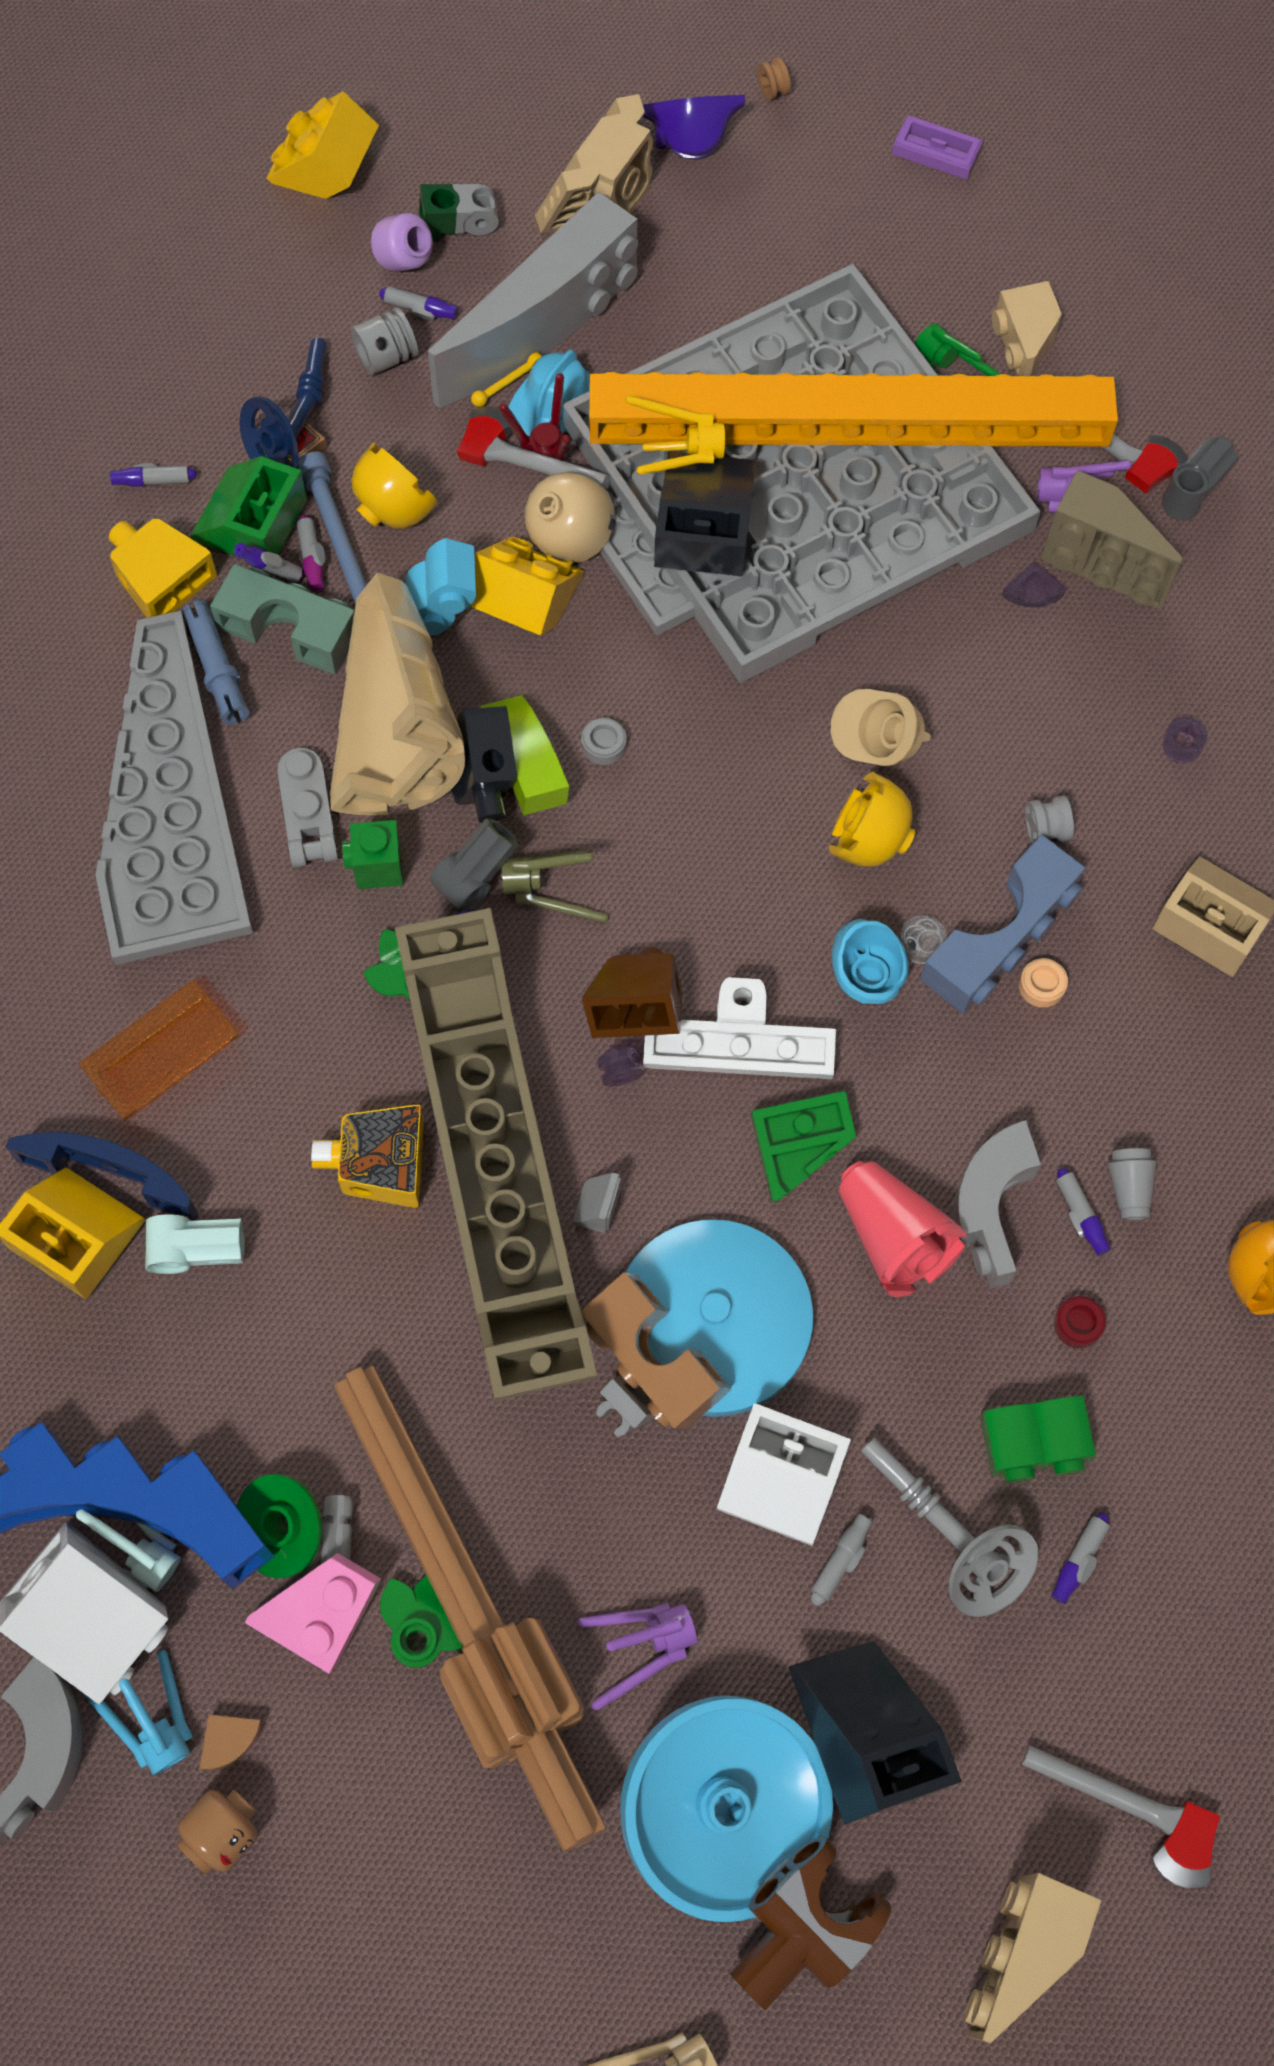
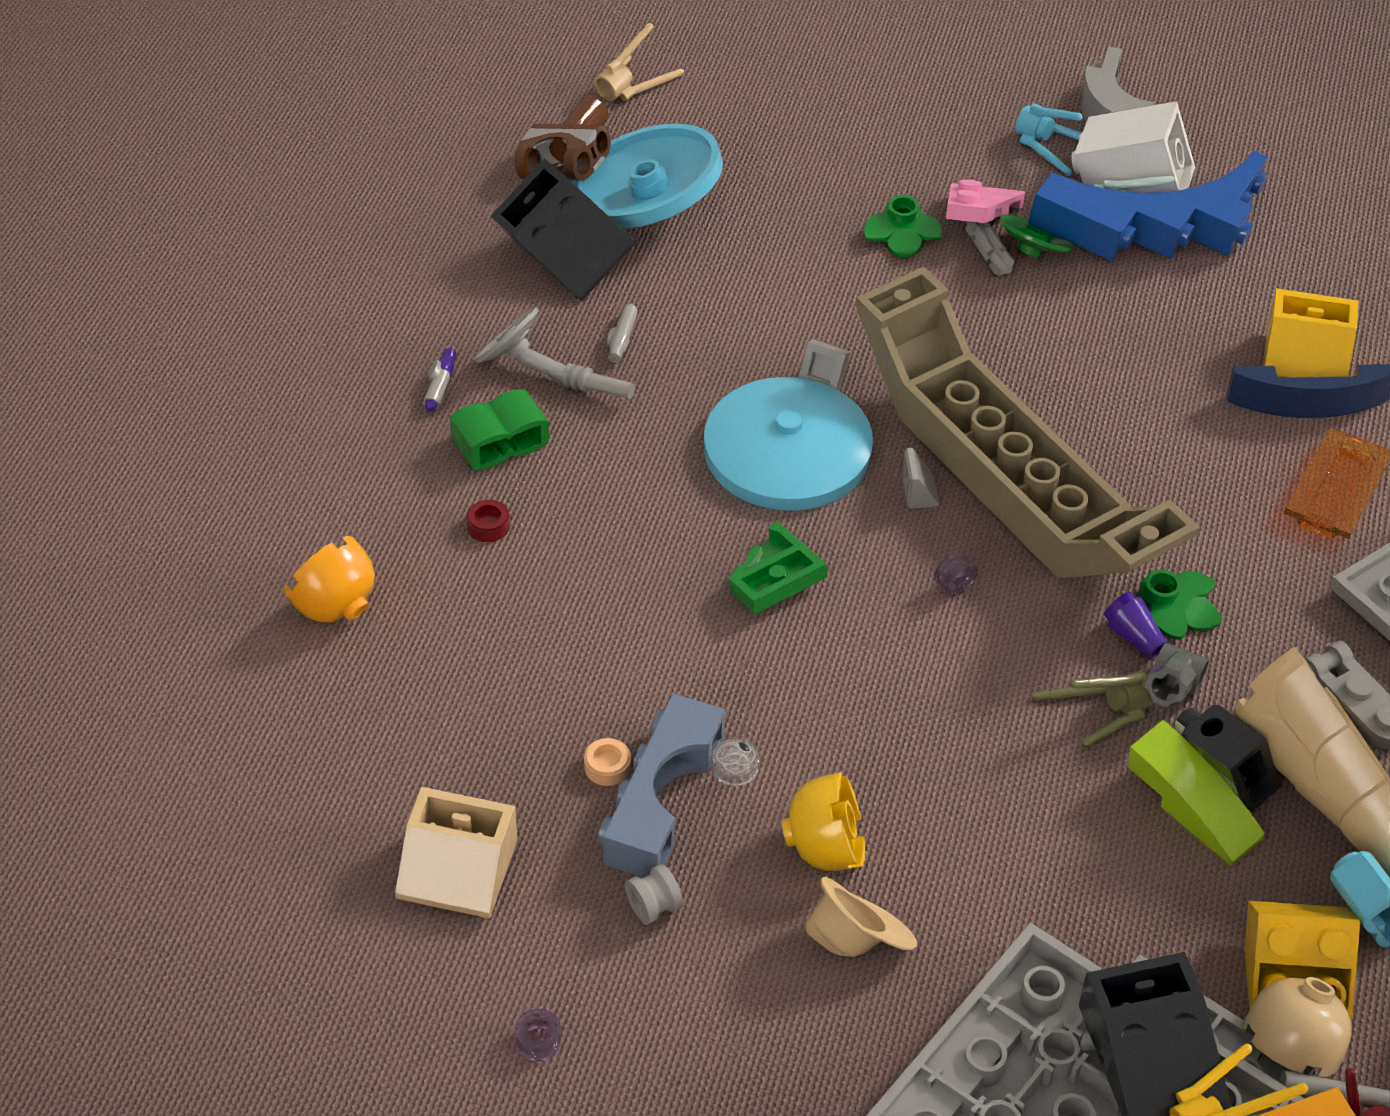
camera: 160 degrees right, 20 degrees down
(178, 1243) = (1210, 367): light aqua piece -> none
(217, 1831) = (973, 91): medium nougat head -> none
(227, 1740) = (996, 143): medium nougat tile -> none
(374, 854) = (1259, 650): green brick -> none
(377, 1155) = (1118, 450): torso -> none
(509, 1677) = (832, 185): medium nougat axle -> none
(603, 741) = (1127, 845): light grey tile -> none
(623, 1321) = (796, 362): medium nougat arch -> none
(635, 996) = (969, 610): reddish brown torso -> none
(668, 1630) = (731, 256): medium lavender plant -> none
(742, 1041) = (864, 622): white plate -> none
(783, 1474) = (688, 360): white slope -> none
(869, 961) = (779, 707): medium azure hair -> none
(899, 1228) = (666, 517): coral cone -> none
(995, 1168) = (598, 590): light grey arch -> none
(1038, 1944) = (411, 159): tan slope -> none
(1081, 1213) = (511, 593): piece -> none
(1133, 1182) = (474, 622): light grey cone -> none
(1190, 1829) = (319, 259): piece -> none

